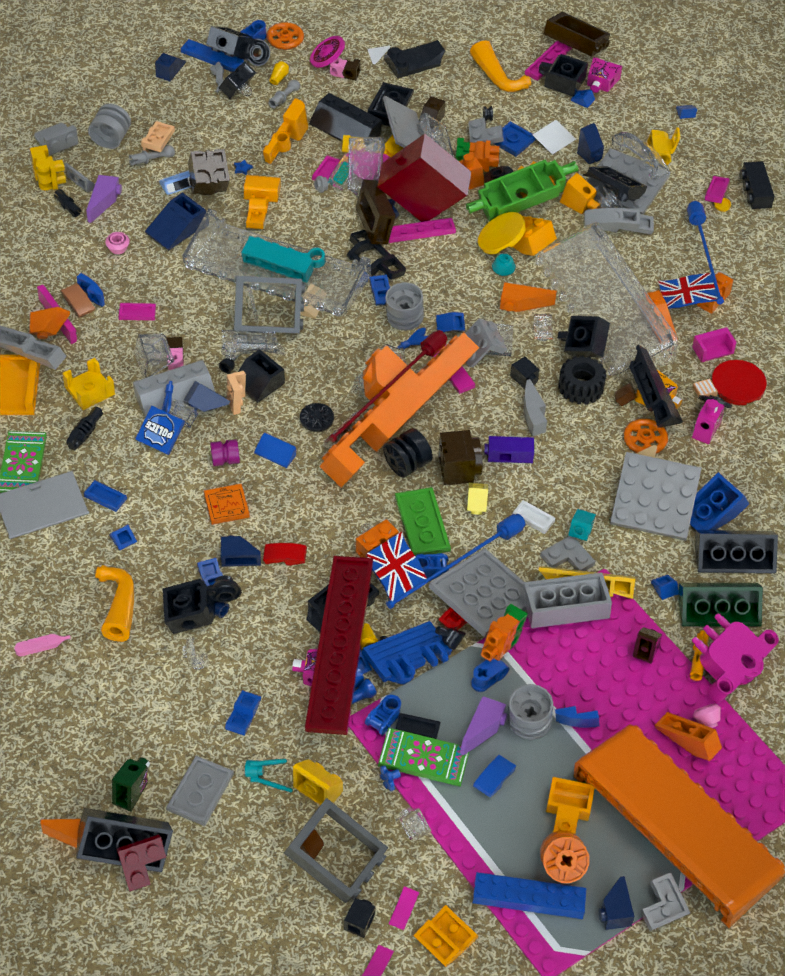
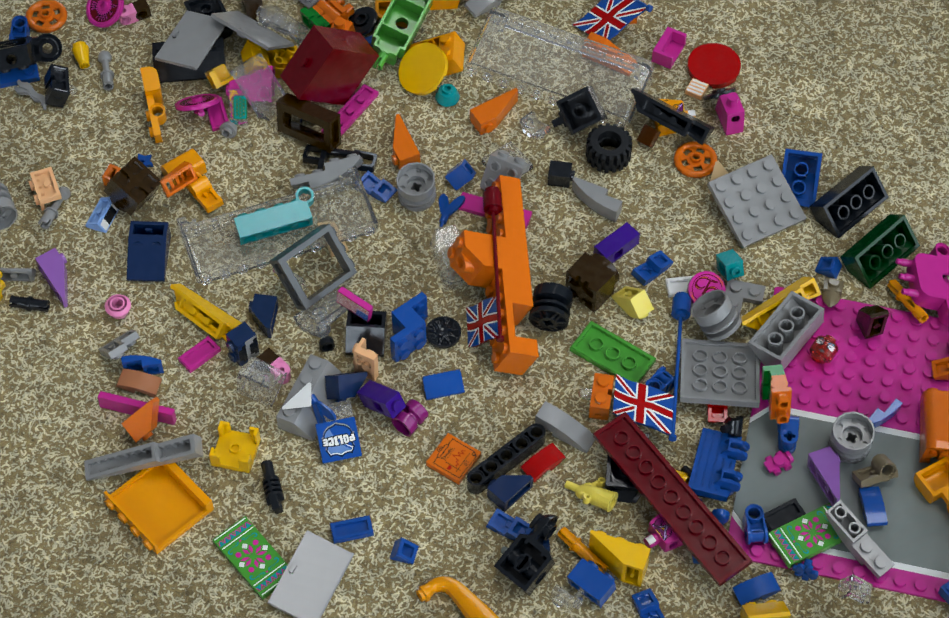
camera: 40 degrees left, 5 degrees up
(84, 267) = (117, 347): none -> light grey plate
(159, 382) = (301, 399): none -> white sticker
(165, 319) = (242, 344): none -> dark blue brick
(171, 293) = (203, 313): none -> yellow wedge
(208, 315) = (264, 312): none -> dark blue slope
(216, 424) = (381, 399): none -> dark purple brick
(221, 657) = (596, 585): none -> blue brick
(242, 633) = (579, 548): none -> light orange axle
(243, 181) = (185, 181): none -> orange slope
(262, 529) = (509, 450): none -> black beam
(262, 661) = (624, 558): none -> yellow slope
(263, 345) = (354, 304): none -> tile
(288, 396) = (409, 327): none -> blue bracket
(295, 603) = (594, 493): none -> light yellow piece
(317, 151) = (197, 103): none -> dark pink shield
(325, 538) = (564, 427): none -> light grey slope
(339, 760) = (756, 588): none -> blue slope
(353, 106) = (190, 40): none -> light grey container
(355, 252) = (332, 171): none -> light grey slope
(430, 274) = (403, 145): none -> orange slope
(450, 786) = (857, 540): none -> light grey slope
(455, 686) = (780, 460): none -> dark pink piece
(520, 753) = (881, 470): none -> dark tan plate
(524, 486) = (652, 268): none -> blue slope
(524, 547) = (716, 315): none -> light grey wheel
(543, 529) = (703, 283): none -> dark pink tile
(585, 635) = (823, 349): none -> clear red head
(645, 603) = (832, 291): none -> dark tan plate

